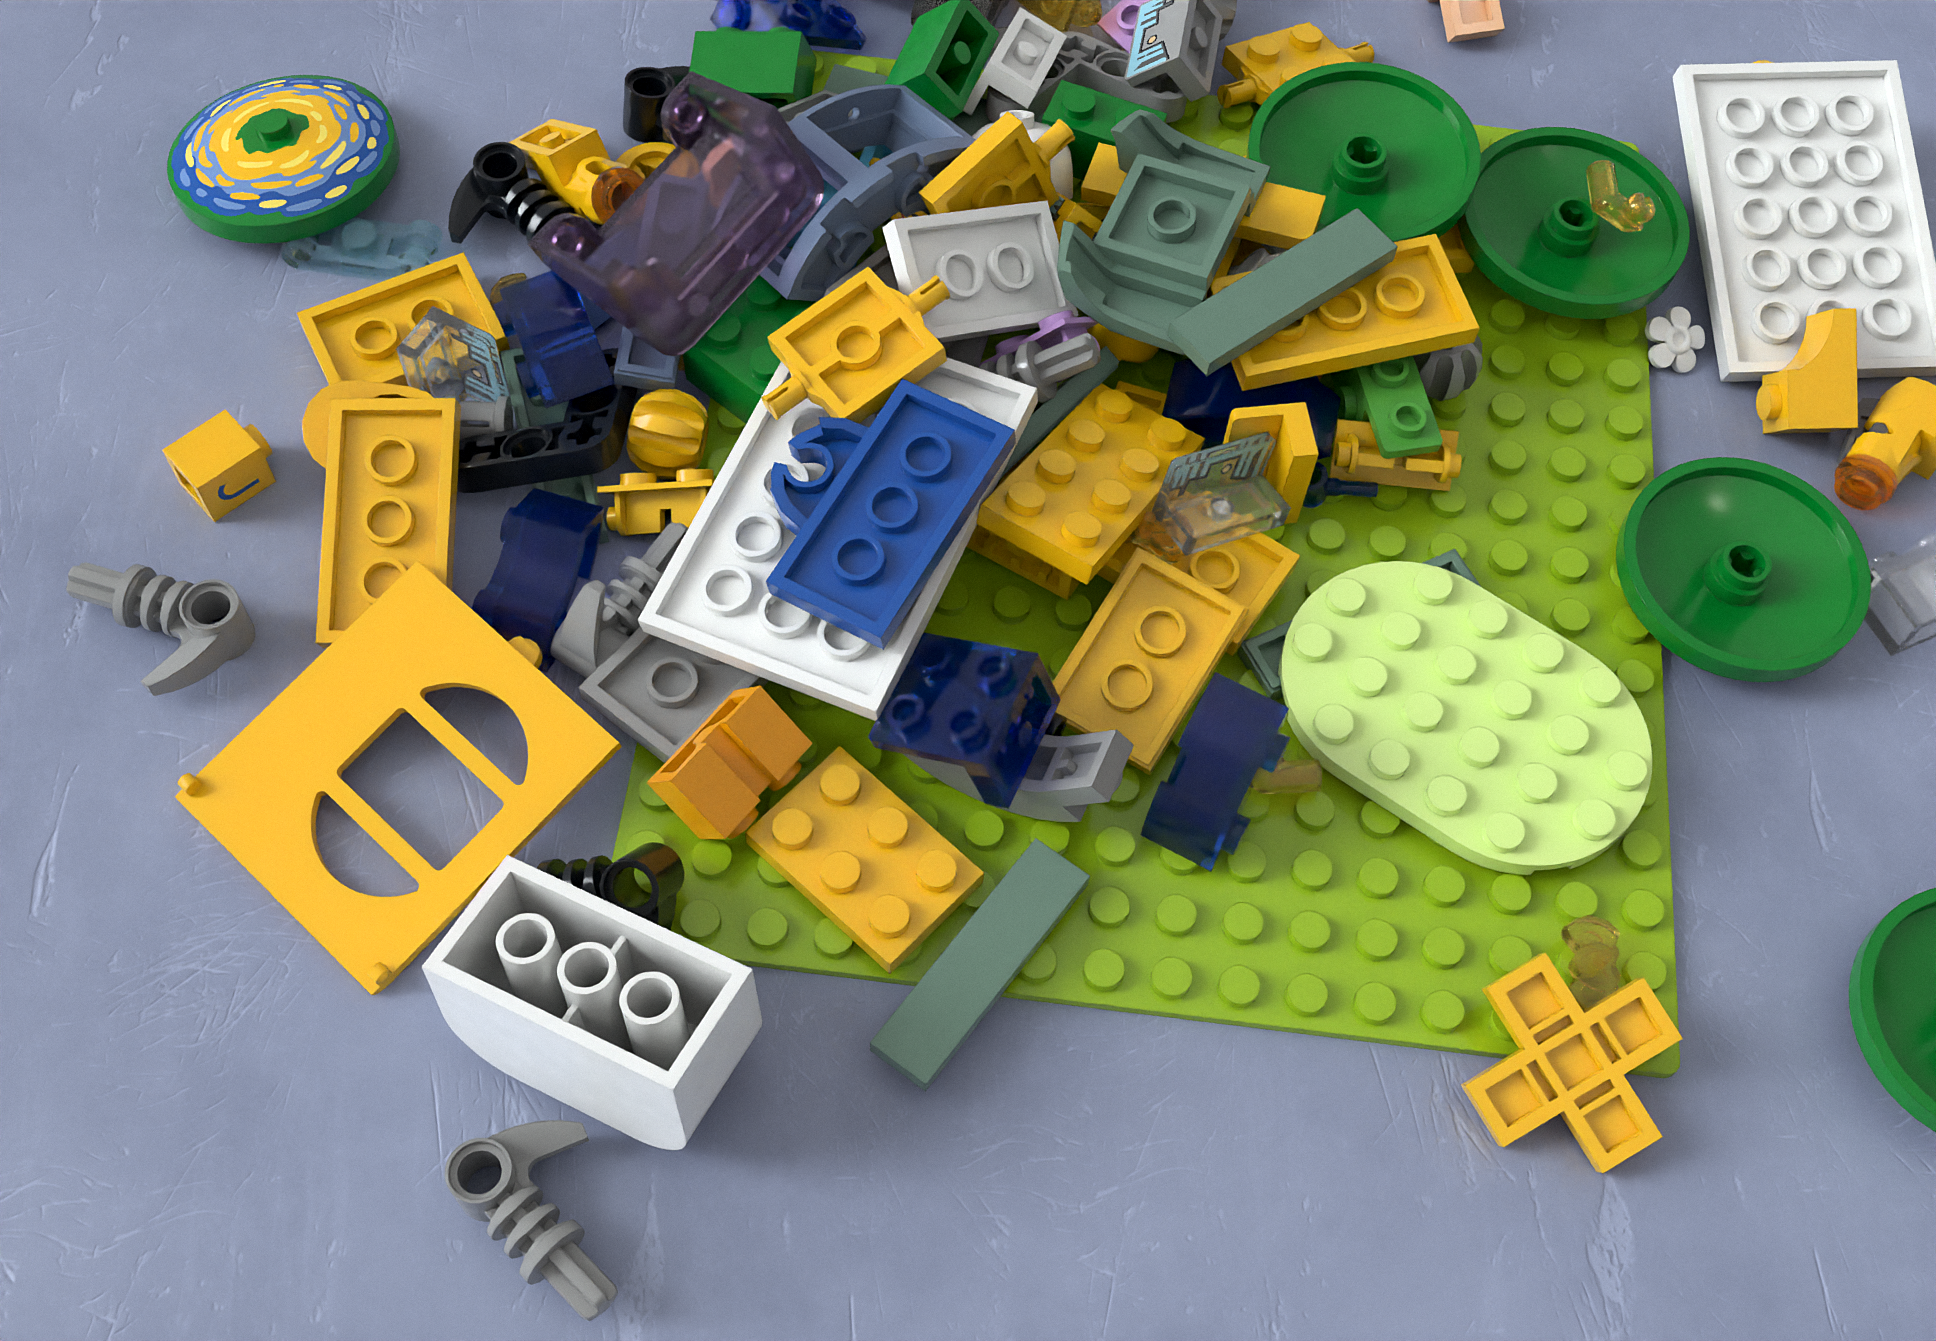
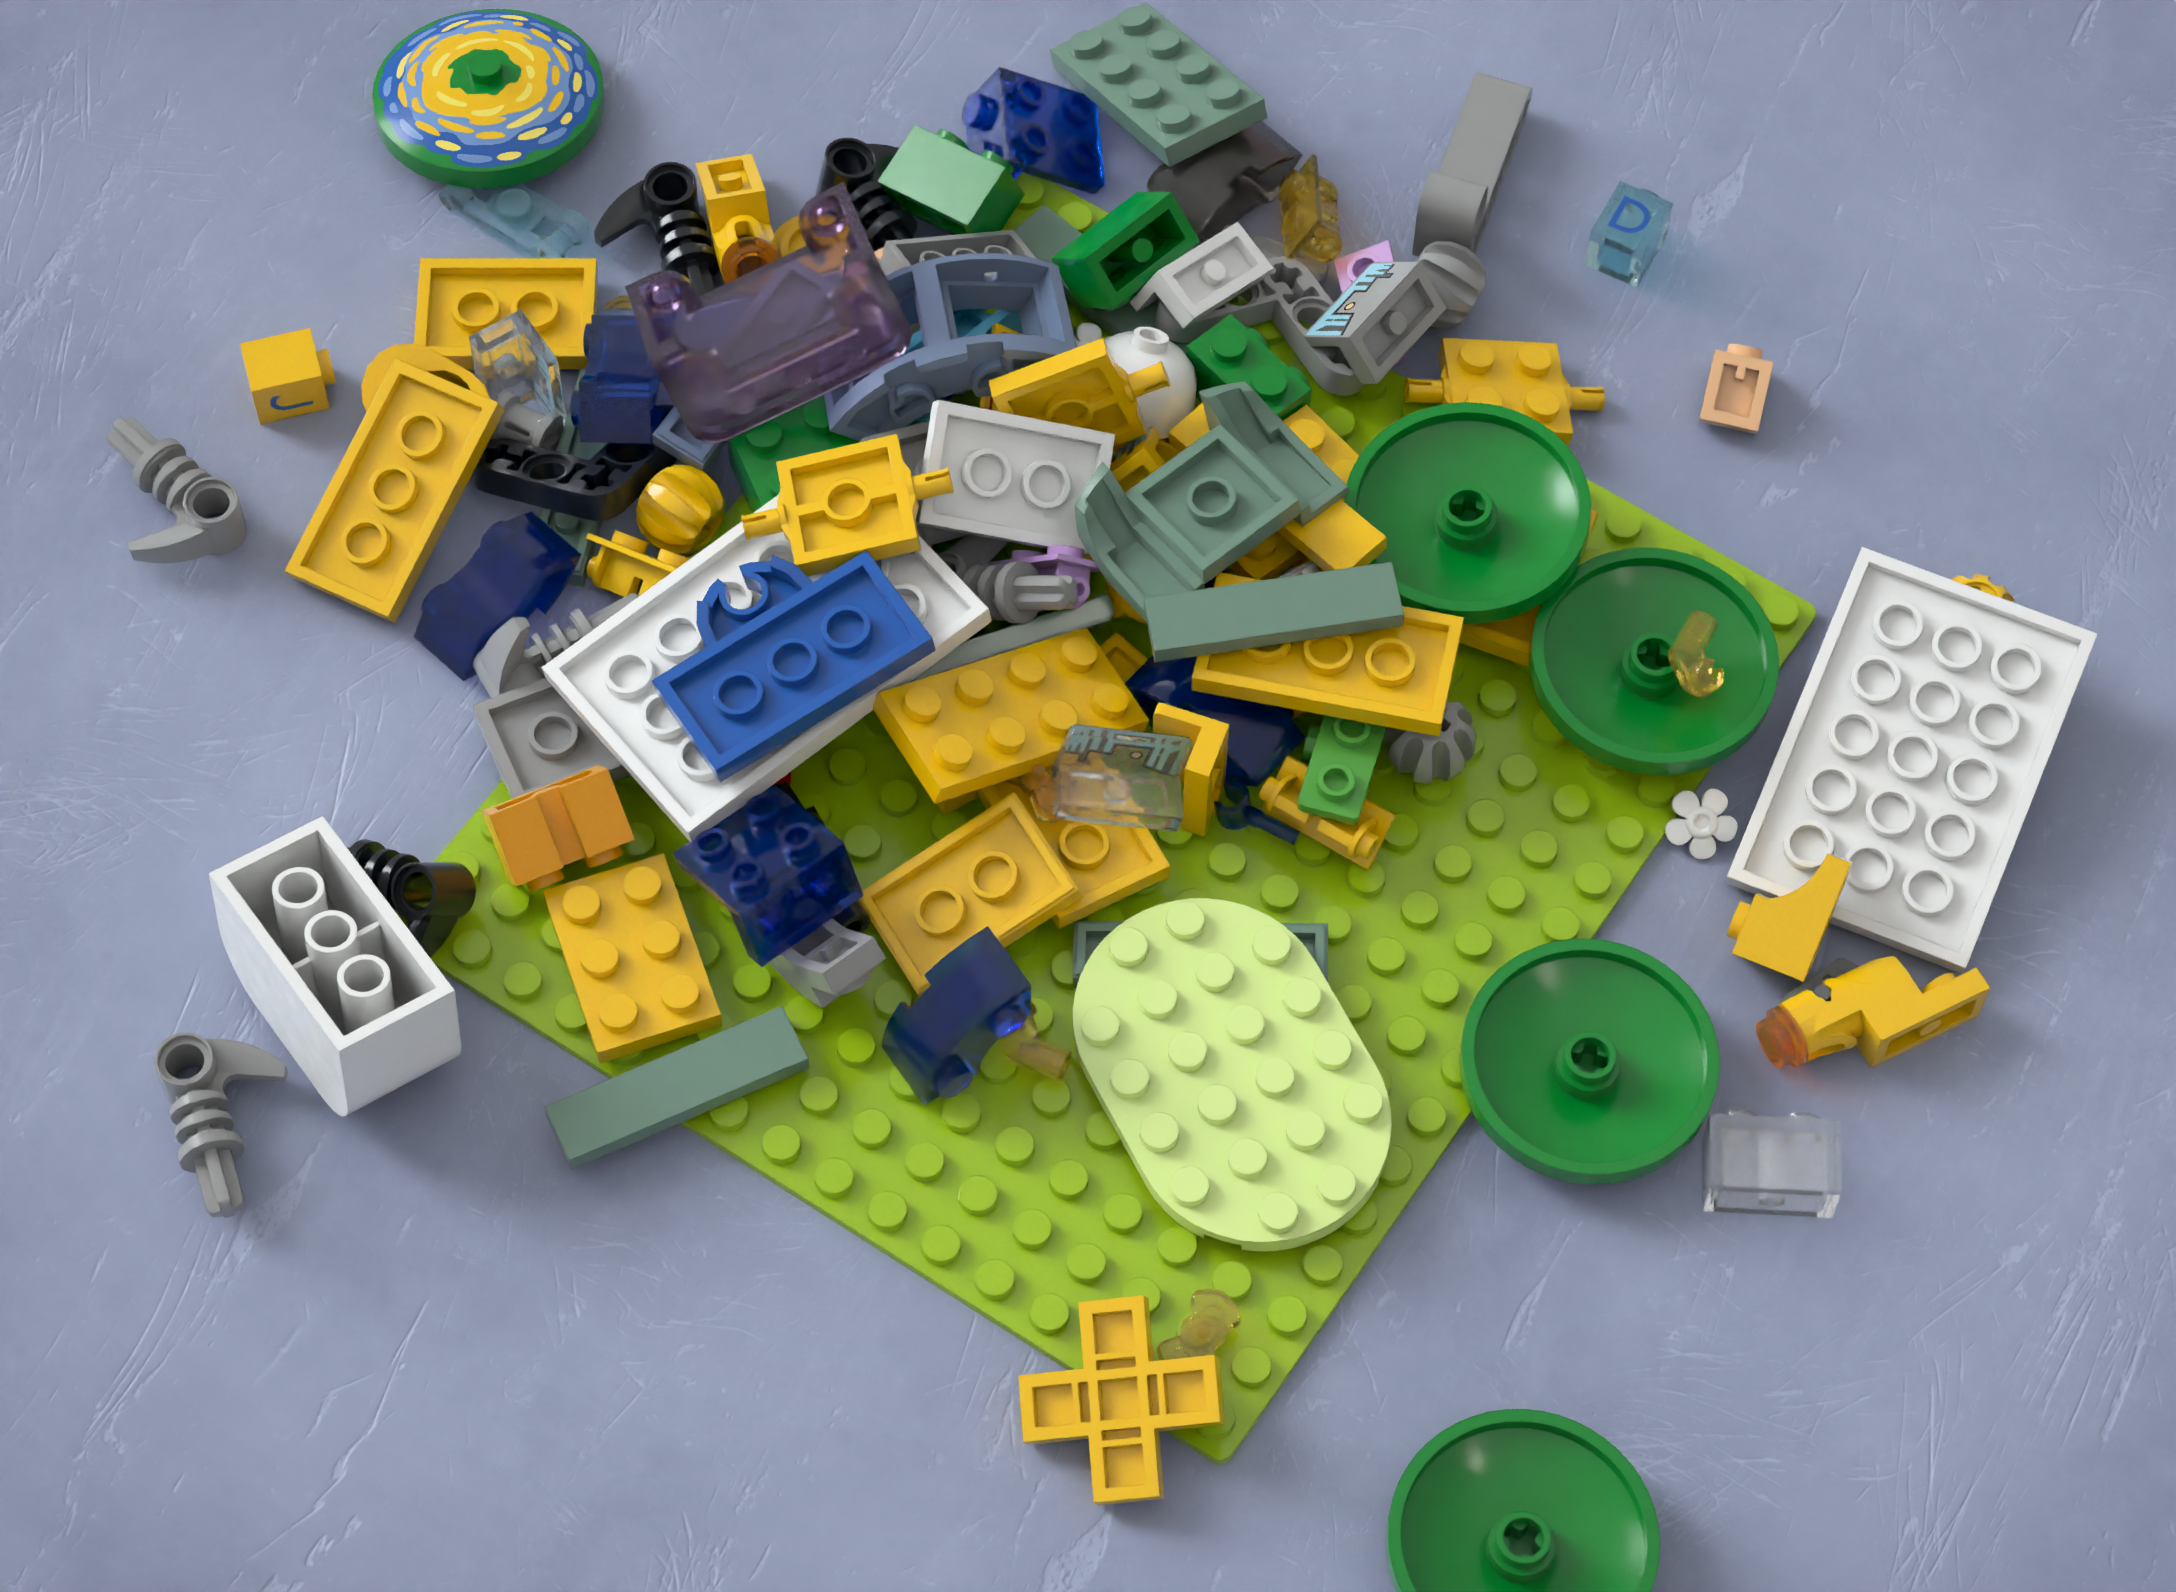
camera: 30 degrees right, 0 degrees up
(270, 778) = (194, 670): yellow door -> none

